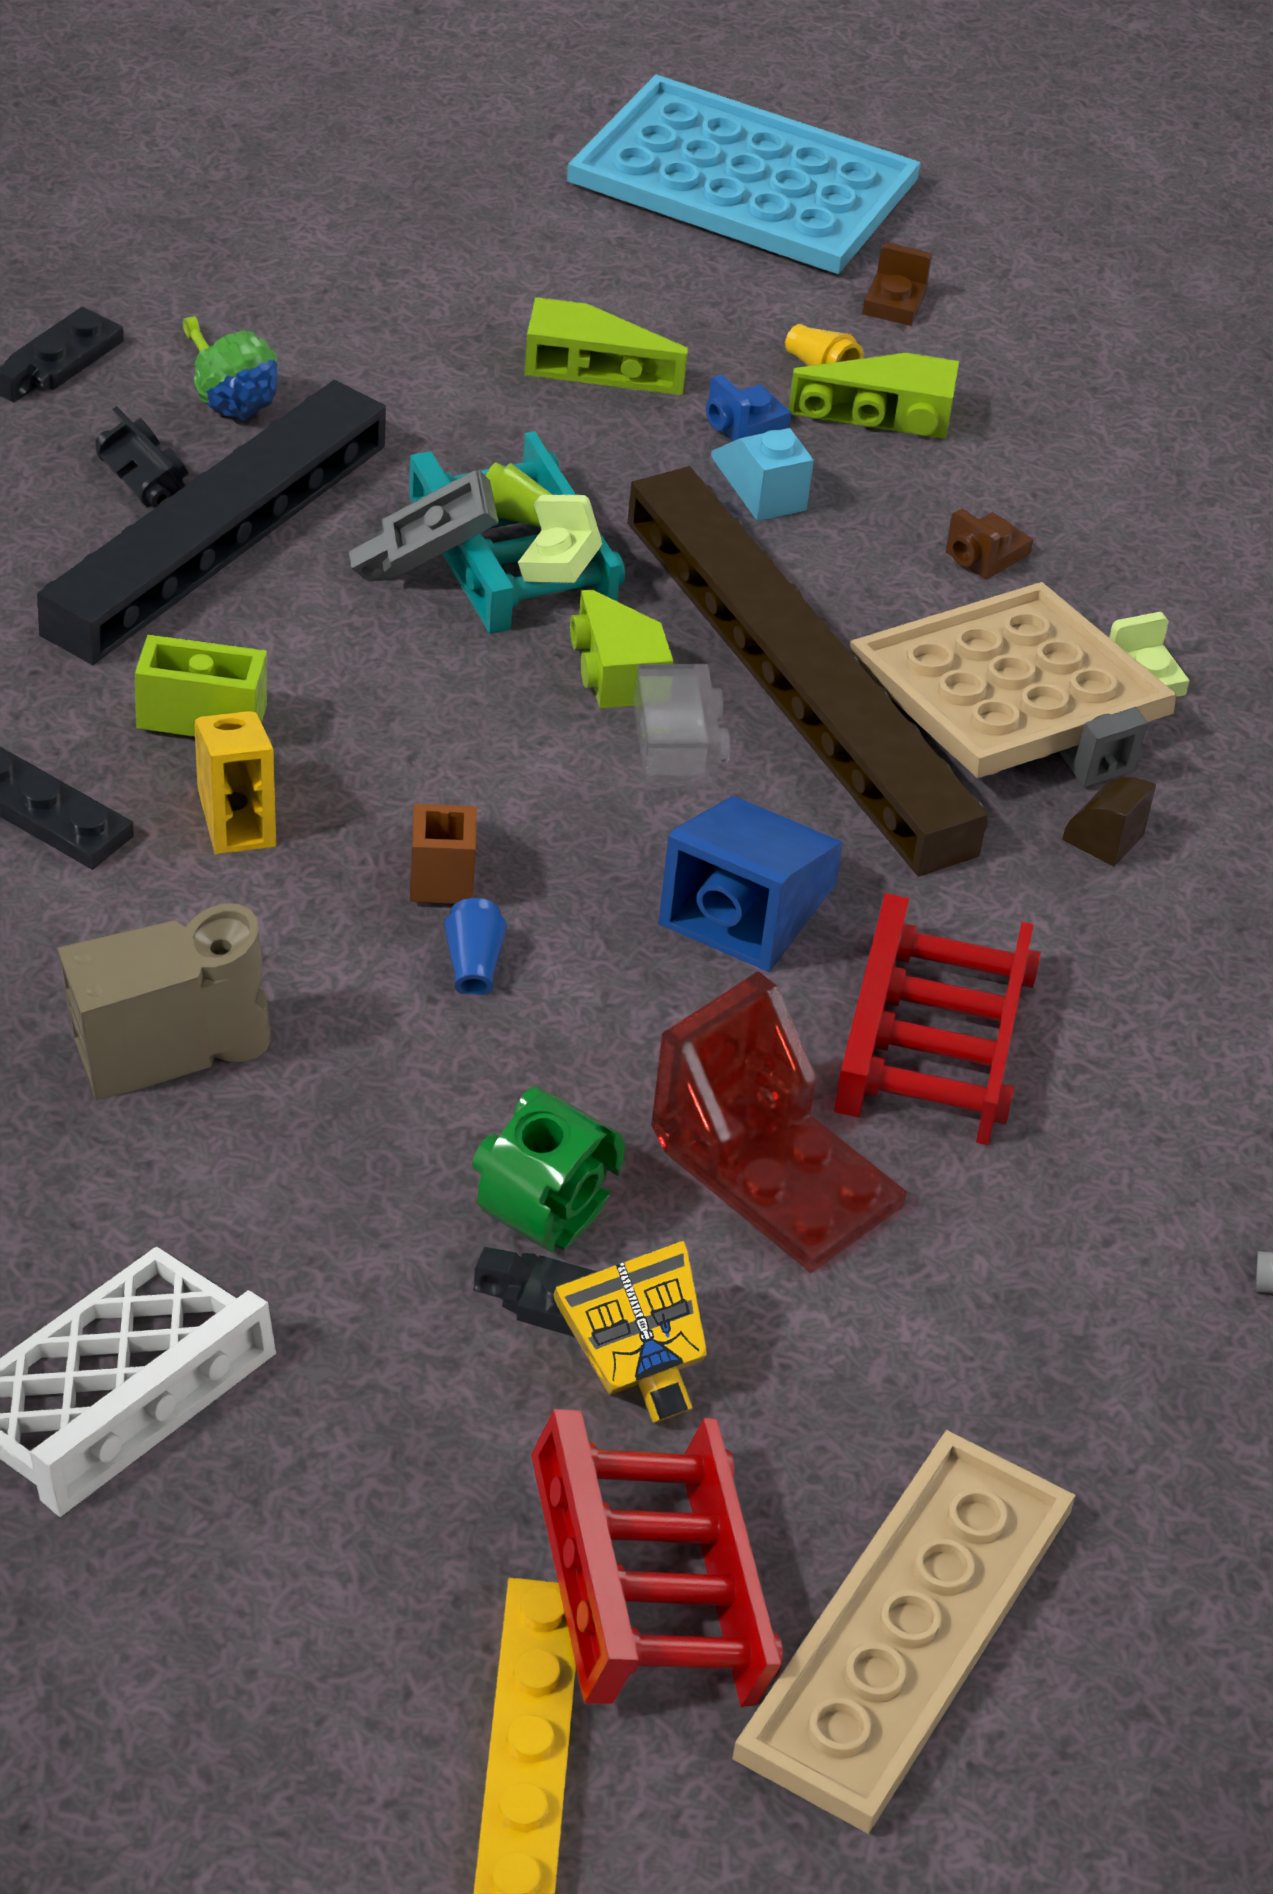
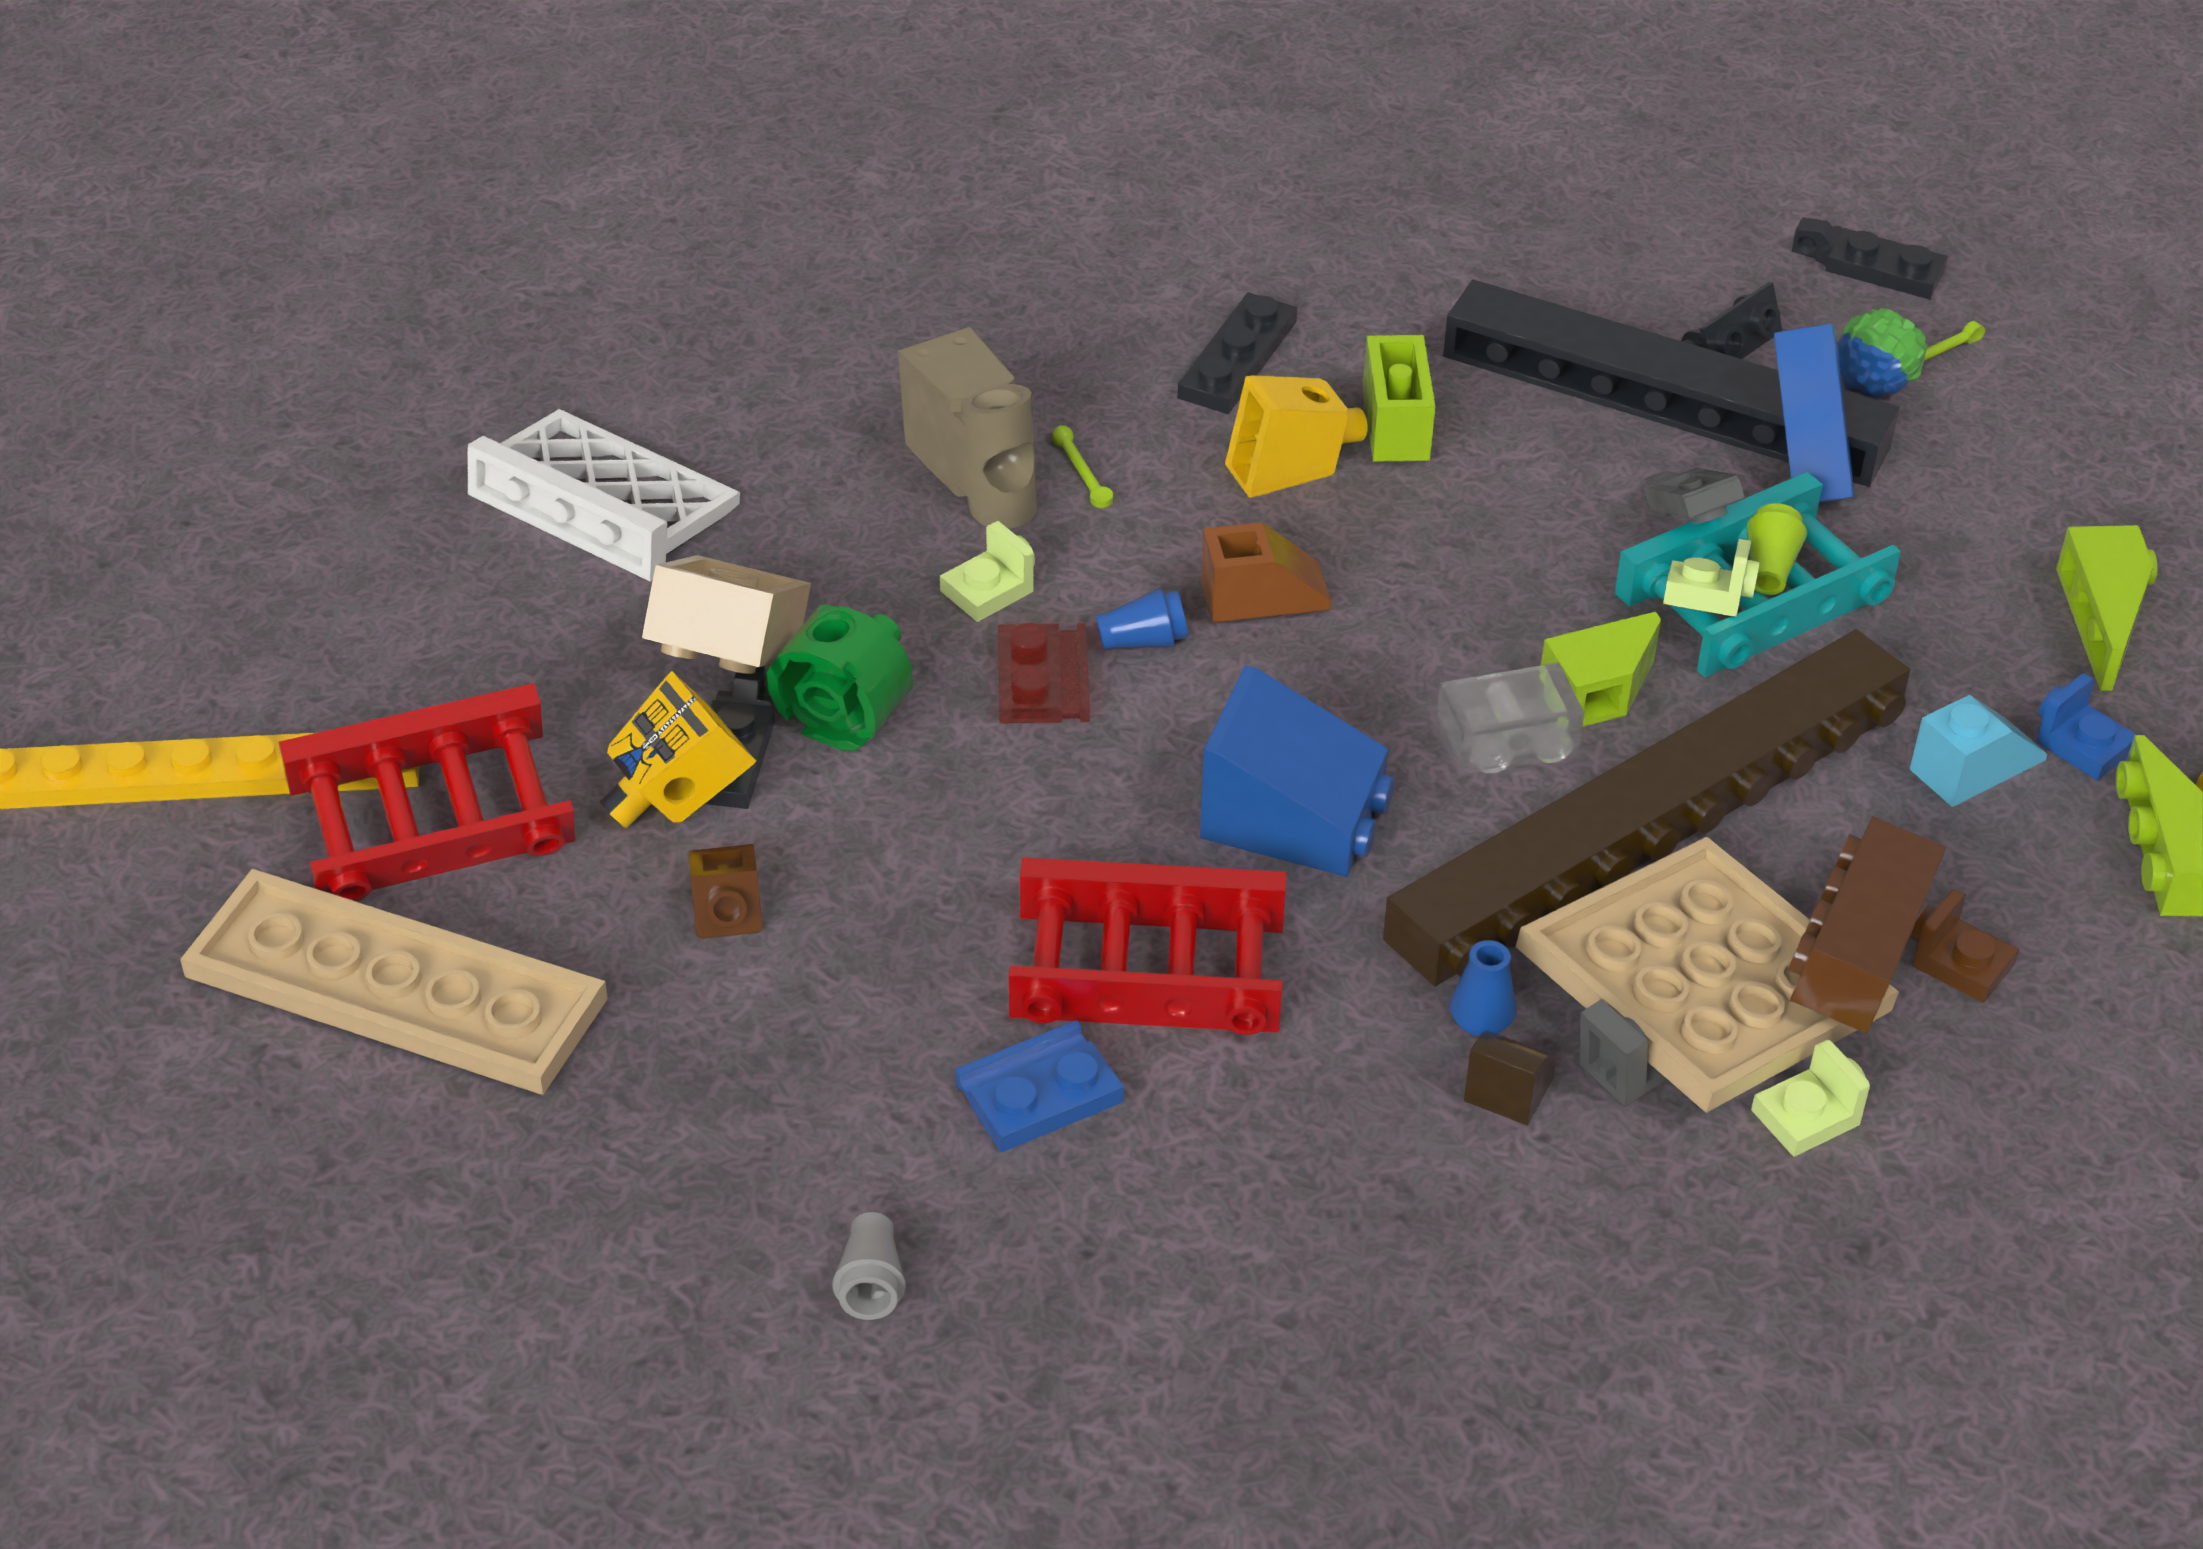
camera: 85 degrees right, 0 degrees up
(346, 422) = (1815, 409): none -> tile
(365, 1051) = (993, 577): none -> yellowish green bracket
(428, 1249) = (723, 612): none -> brick
(520, 1040) = (1042, 673): none -> clear red plate
(739, 1120) = (963, 813): clear red bracket -> none
(806, 1320) = (725, 891): none -> reddish brown bracket
(990, 566) = (1863, 923): none -> reddish brown brick
(1022, 813) = (1485, 991): none -> blue cone
(1087, 1131) = (1039, 1086): none -> blue plate

